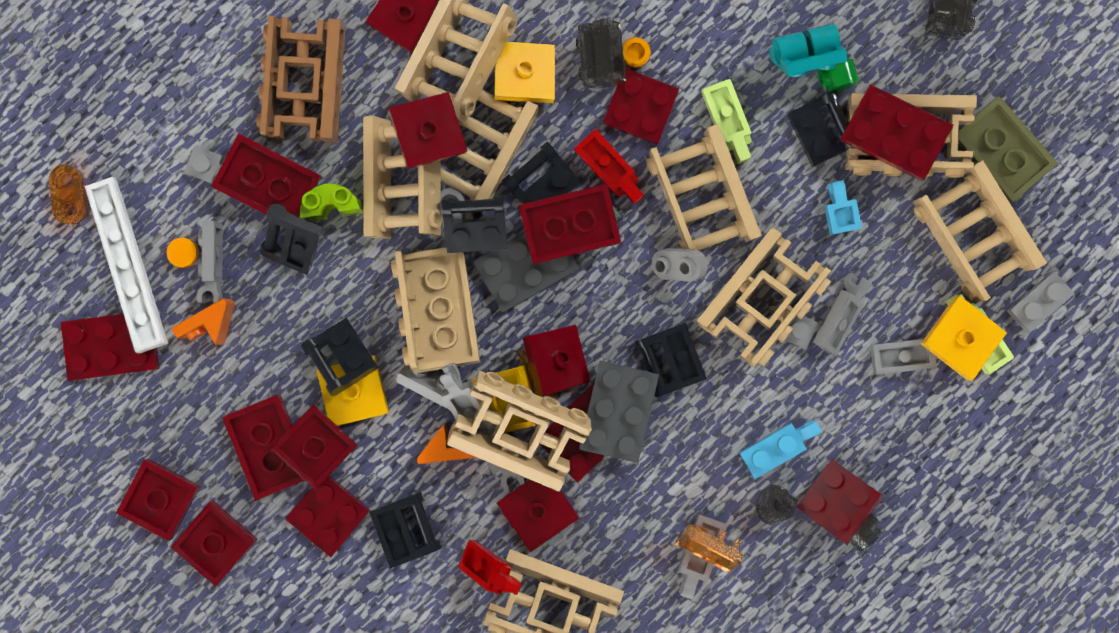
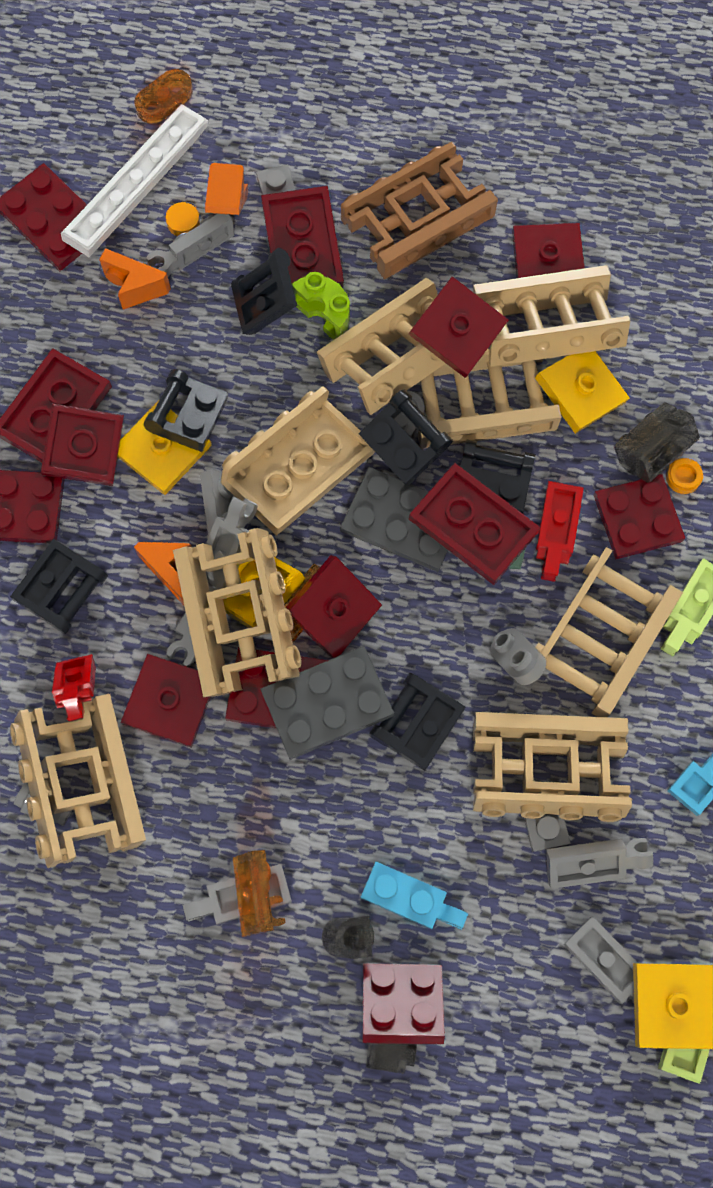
camera: 50 degrees right, 15 degrees down
(189, 210) = (226, 189): none -> orange slope

